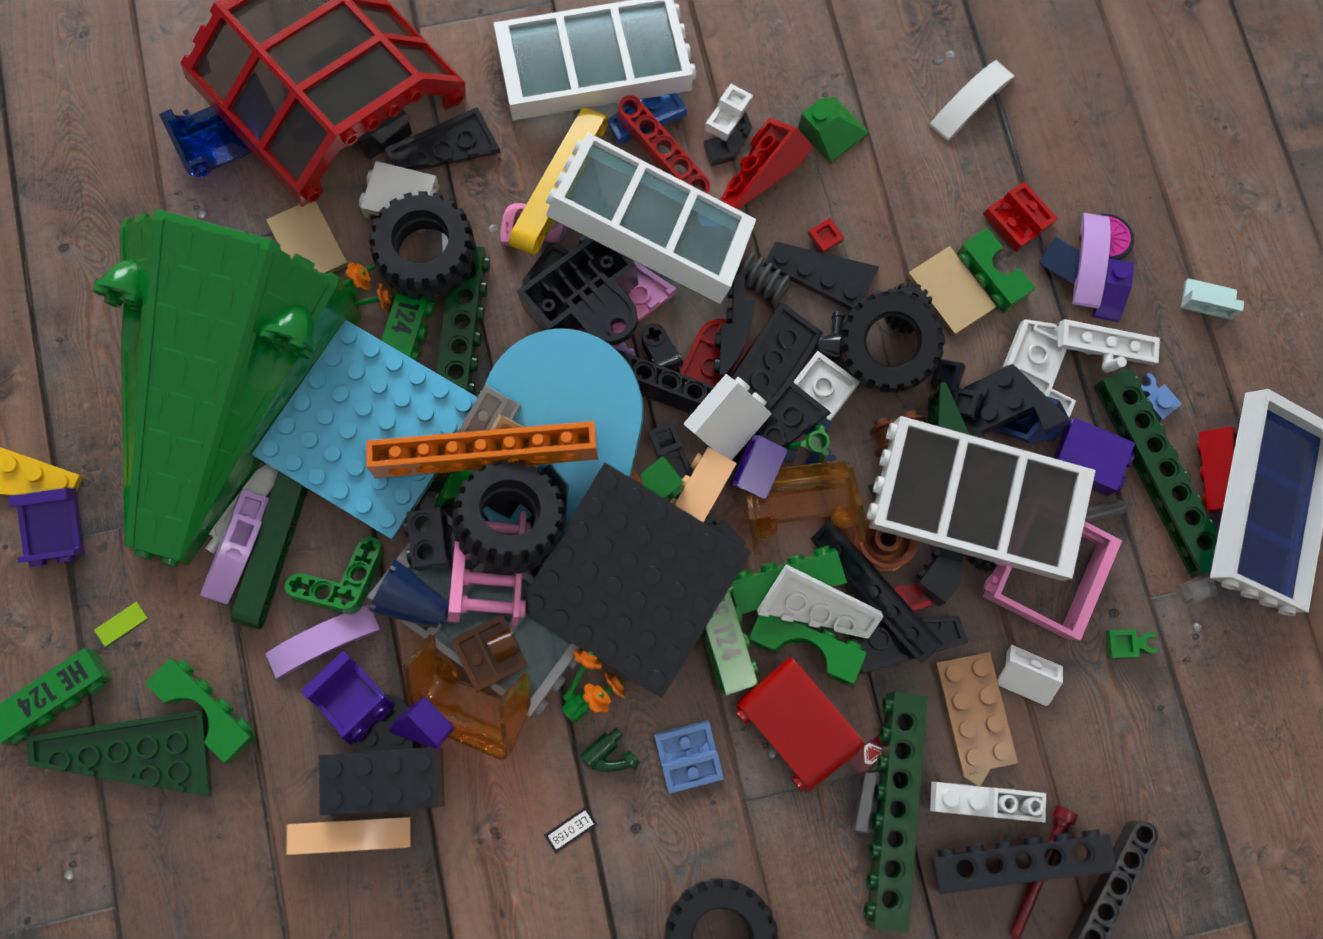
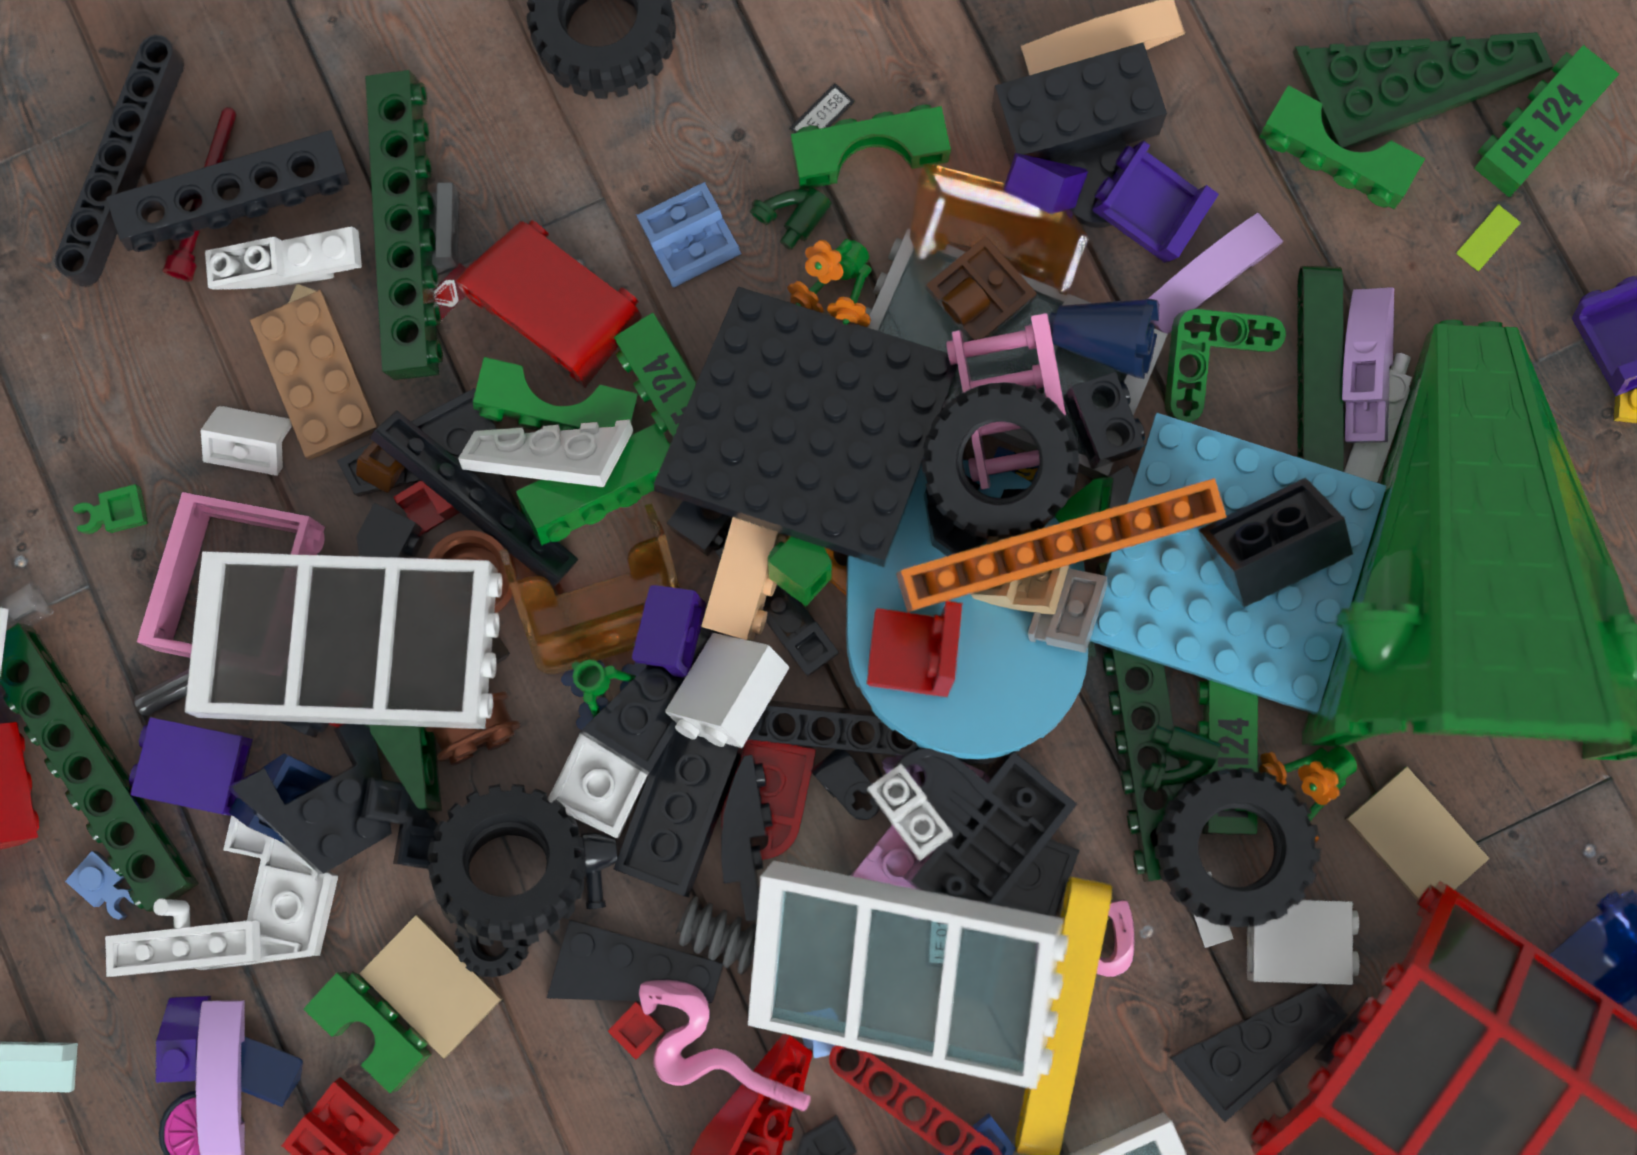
camera: 175 degrees left, 5 degrees up
(335, 426) = (1277, 541): none -> black slope
(429, 314) = (1196, 749): none -> dark green plant
(504, 790) = (914, 135): none -> green arch
(598, 400) = (915, 650): none -> red bracket
(626, 301) = (910, 812): none -> white slope
(802, 204) = (682, 1071): none -> bright pink animal
(940, 627) = (378, 467): none -> reddish brown slope

